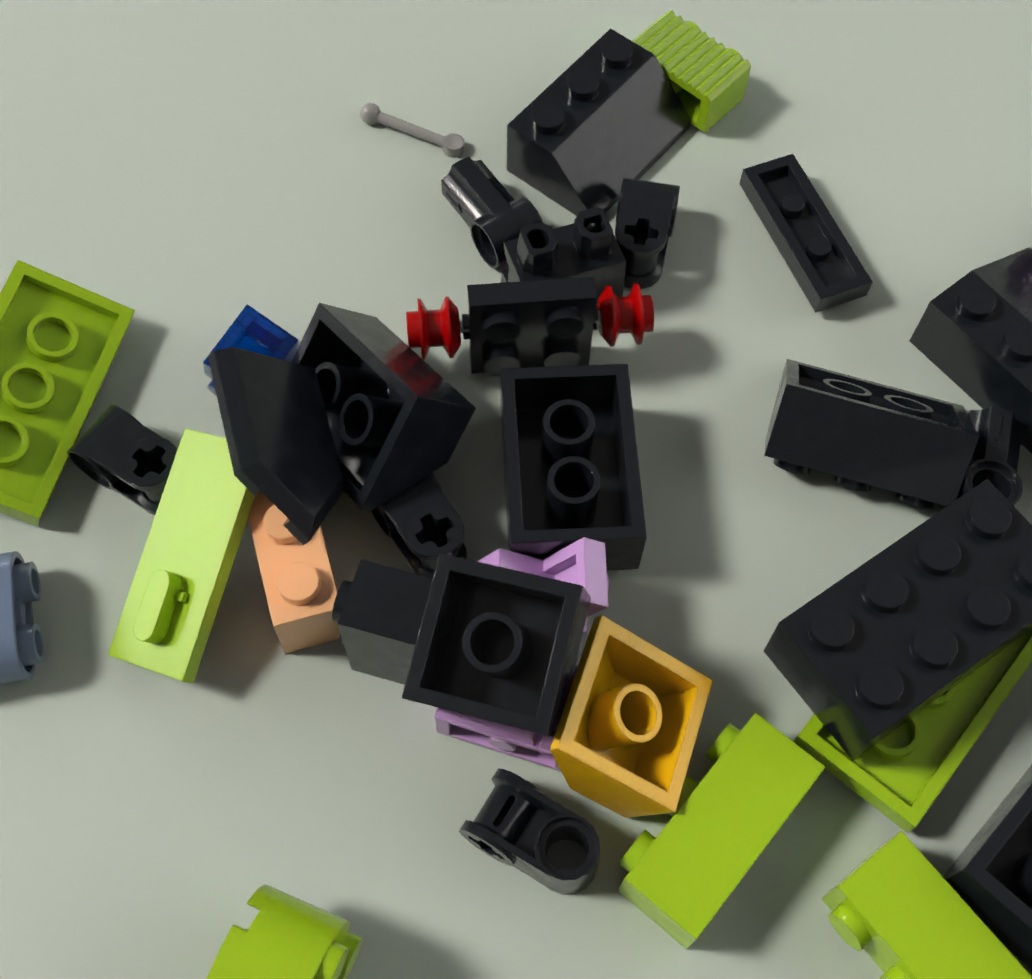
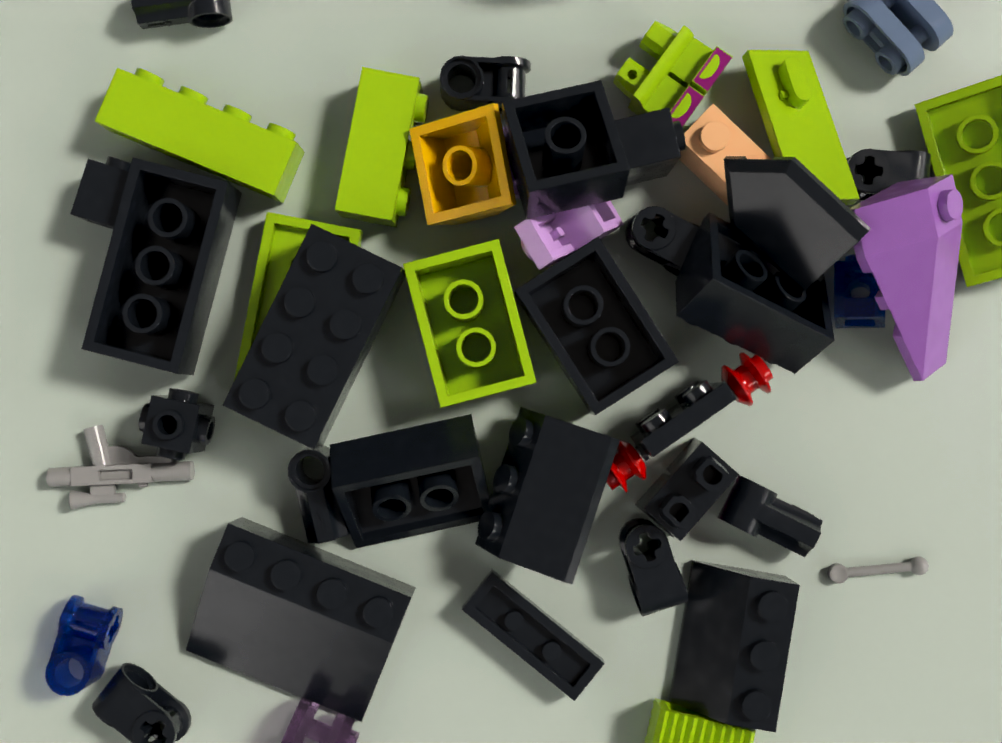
camera: 155 degrees right, 25 degrees up
(159, 355) = (915, 264): none -> medium lavender wedge
(264, 717) = (678, 79): none -> lime hips
(717, 548) = (469, 323): none -> lime brick
(721, 328) = (546, 494): none -> black slope

